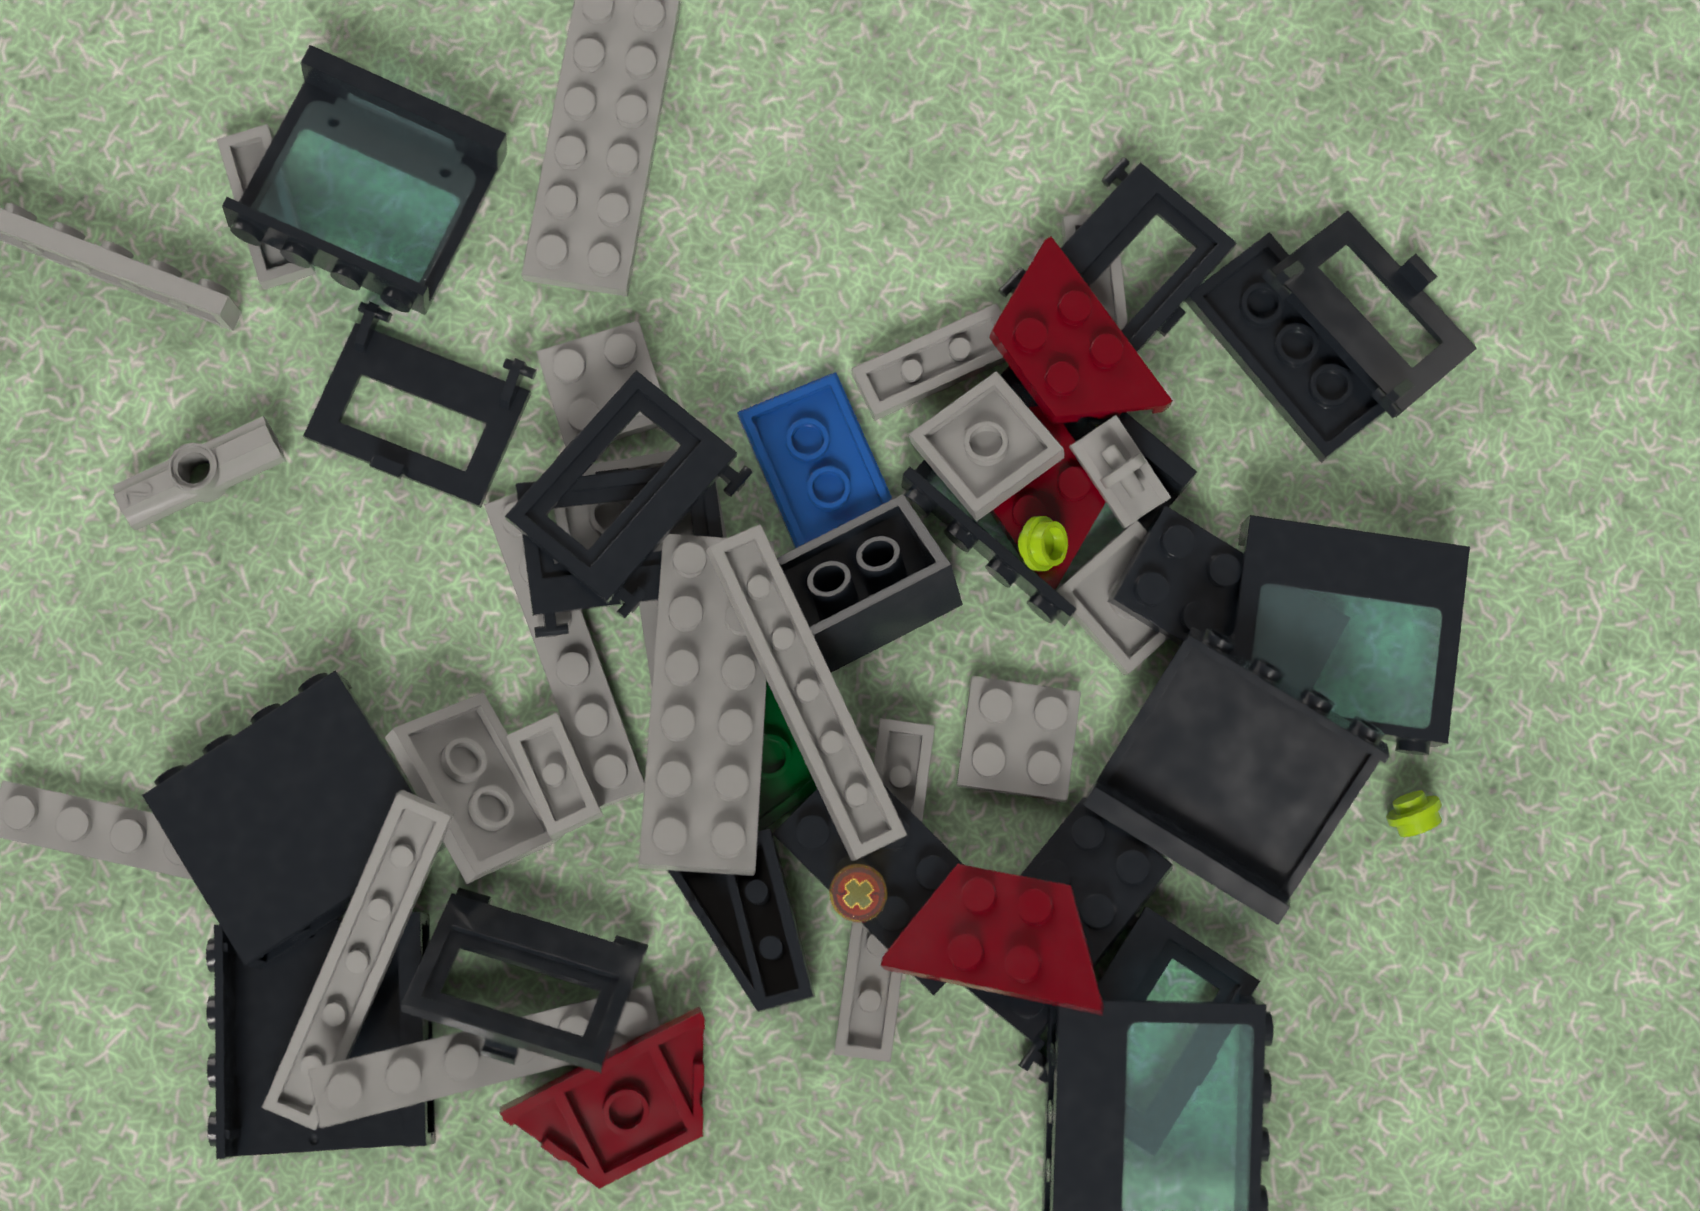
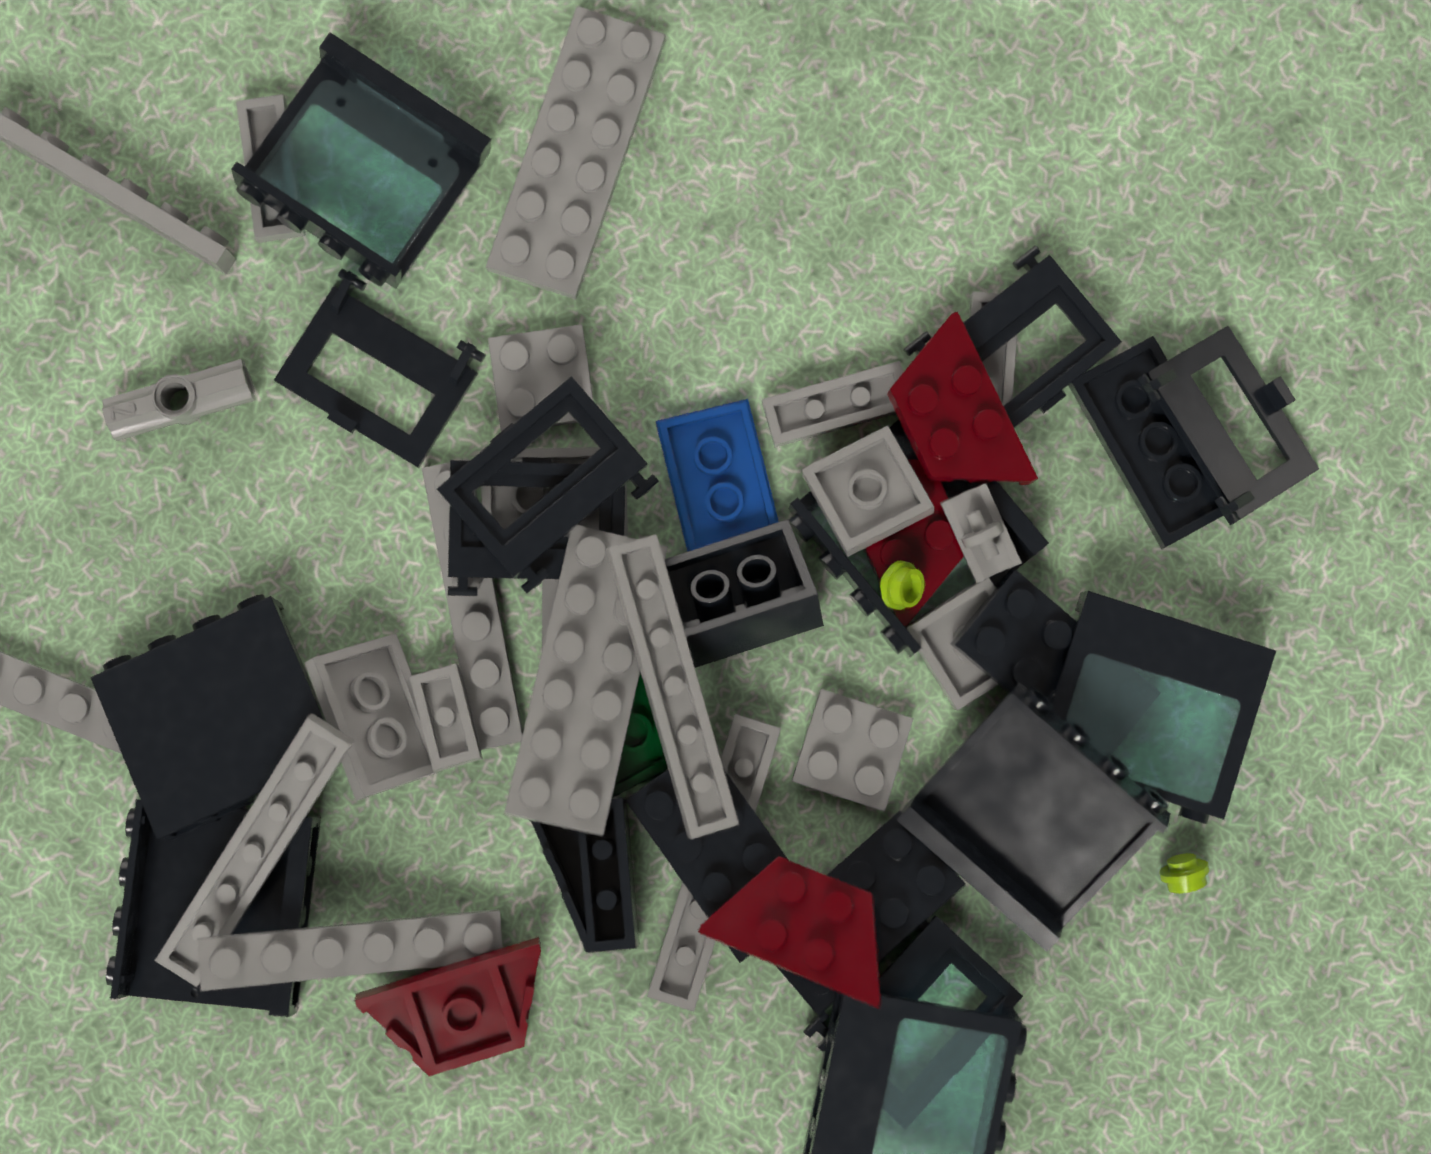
camera: 10 degrees right, 5 degrees up
(534, 945) = (408, 863): black piece -> none
(858, 893) = (689, 866): tile -> none

